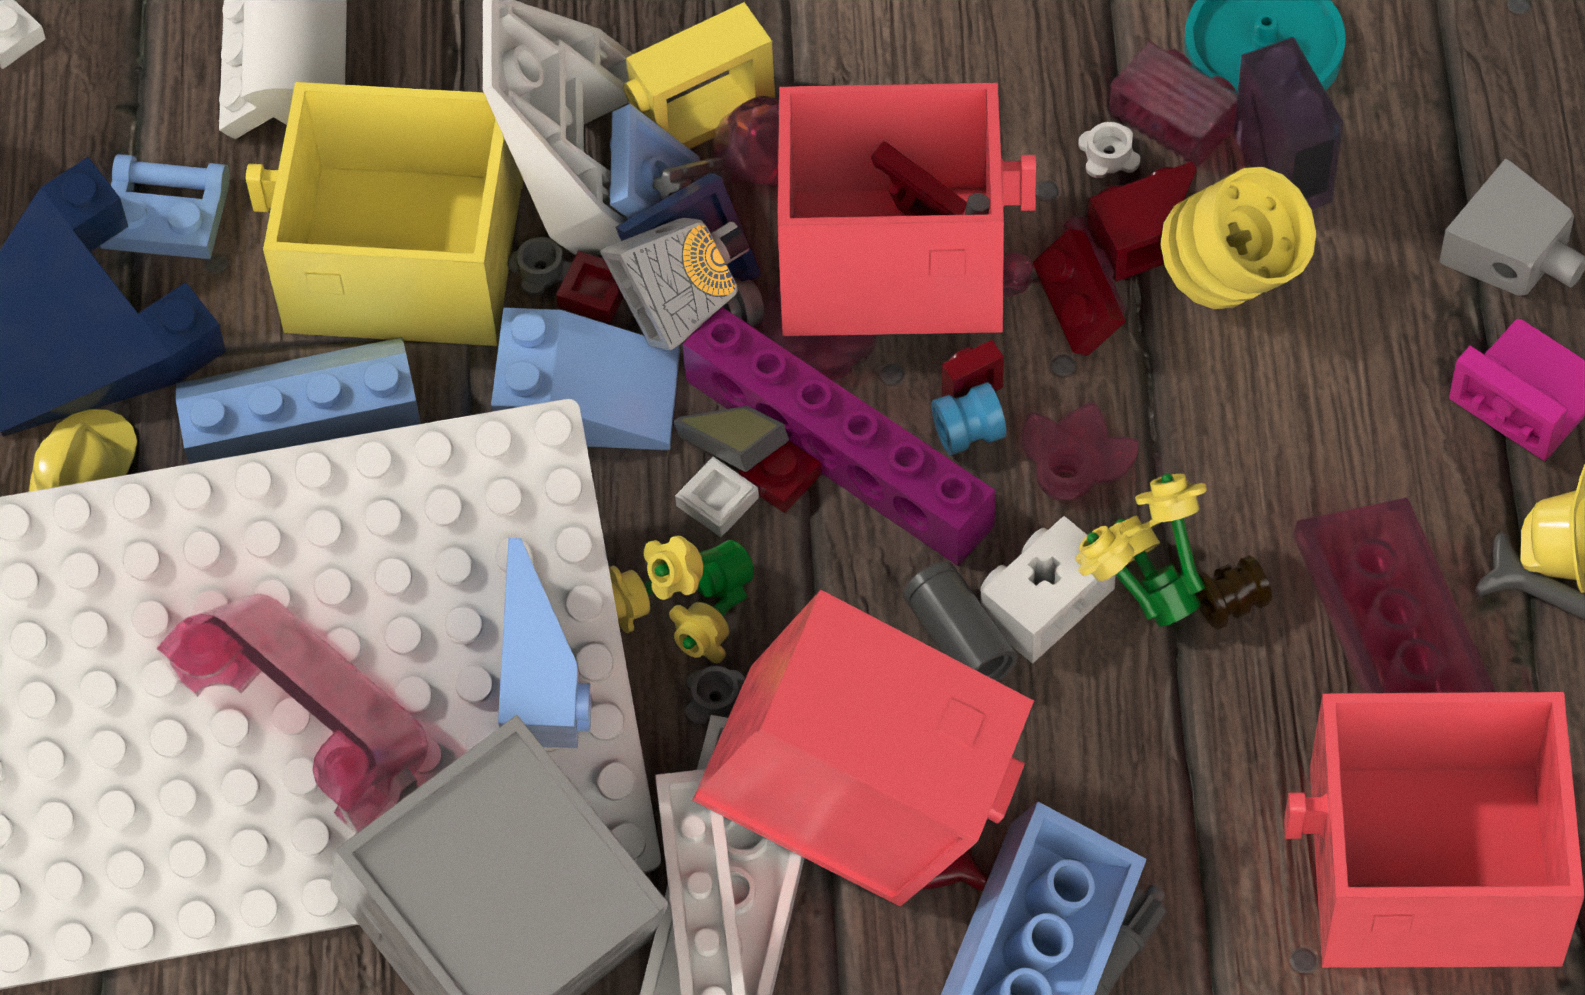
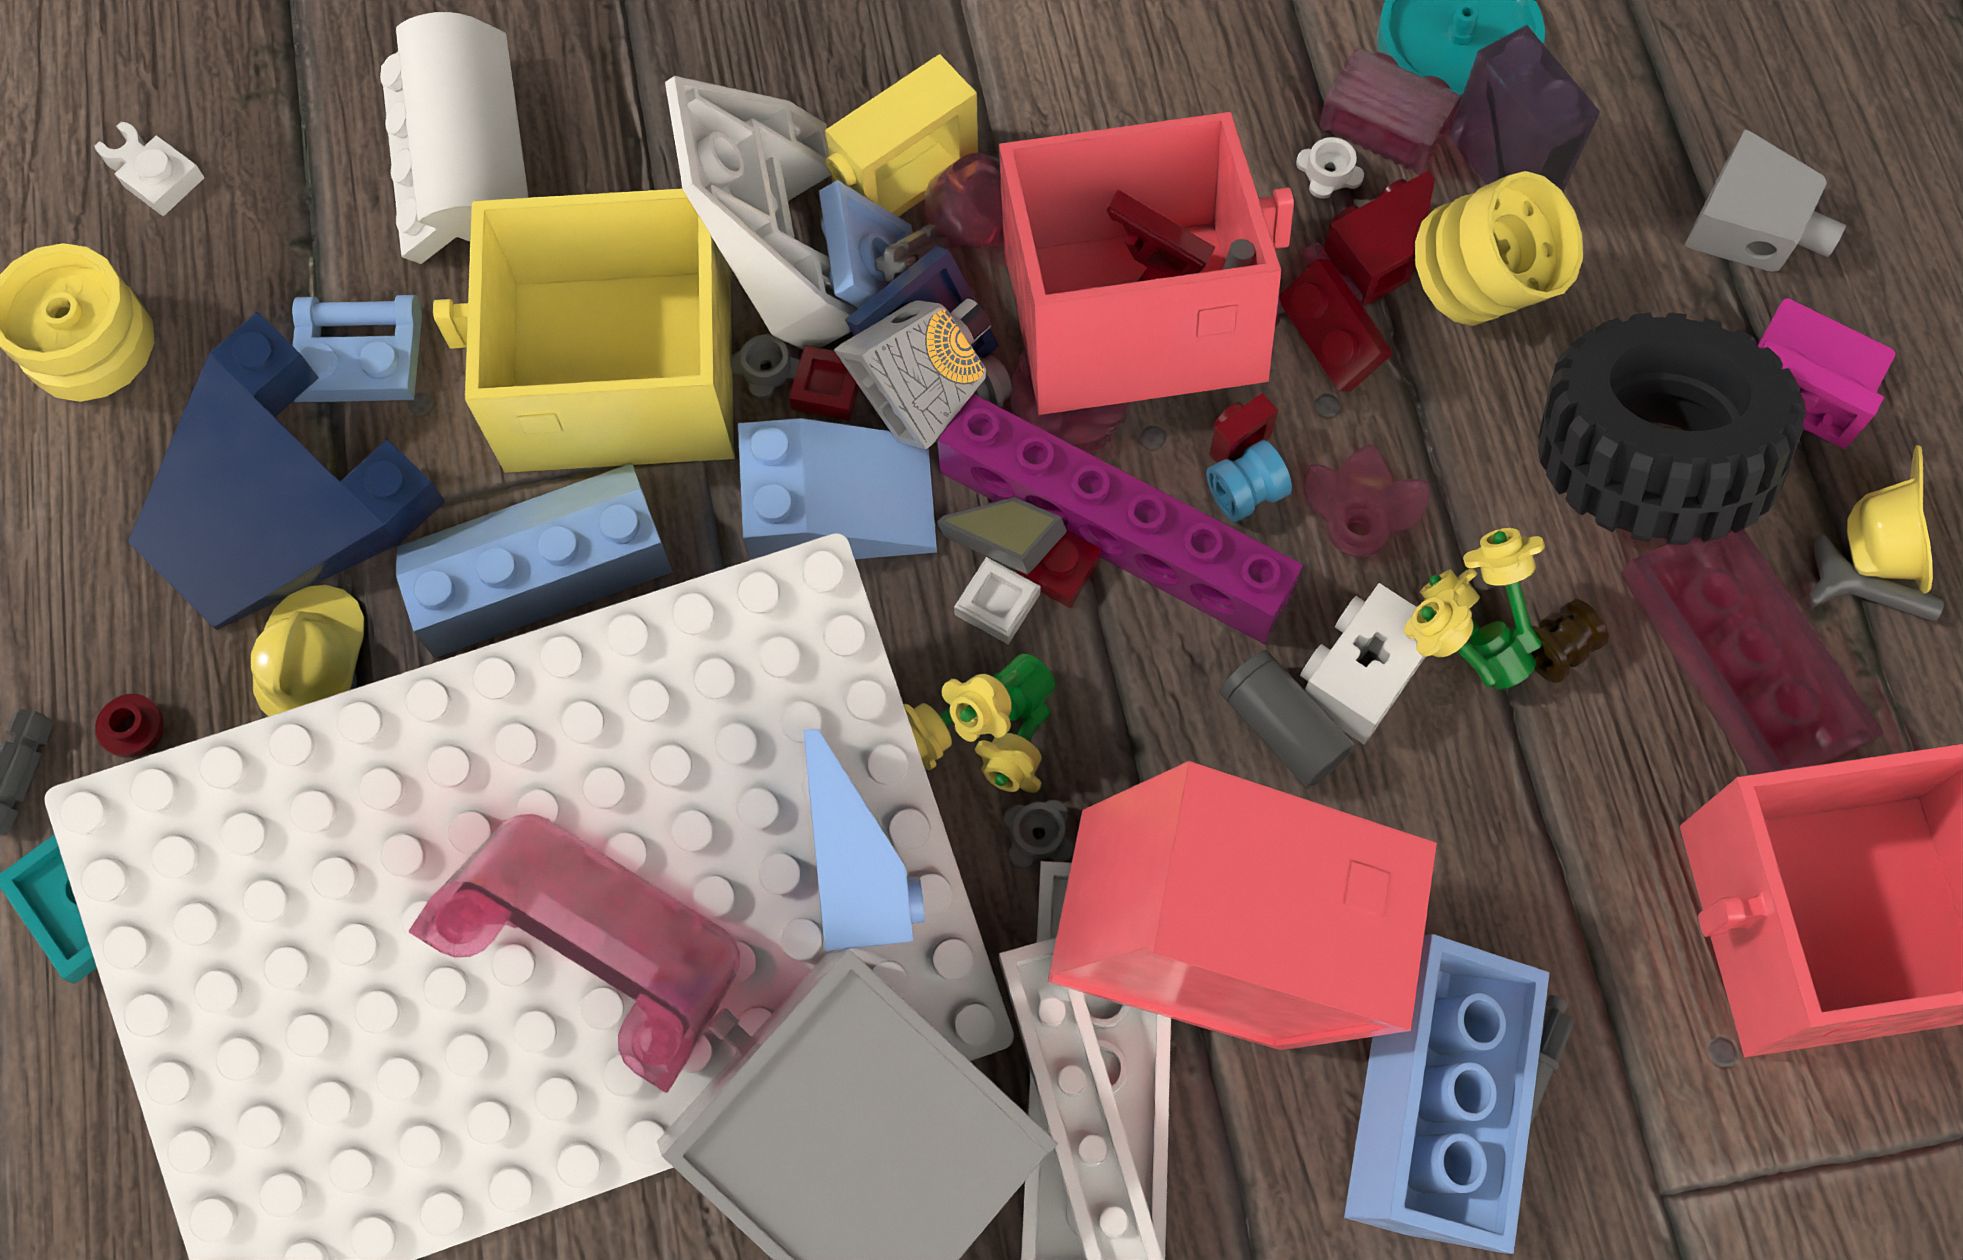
camera: 10 degrees left, 10 degrees up
(1356, 410) = (1660, 481): none -> black tyre

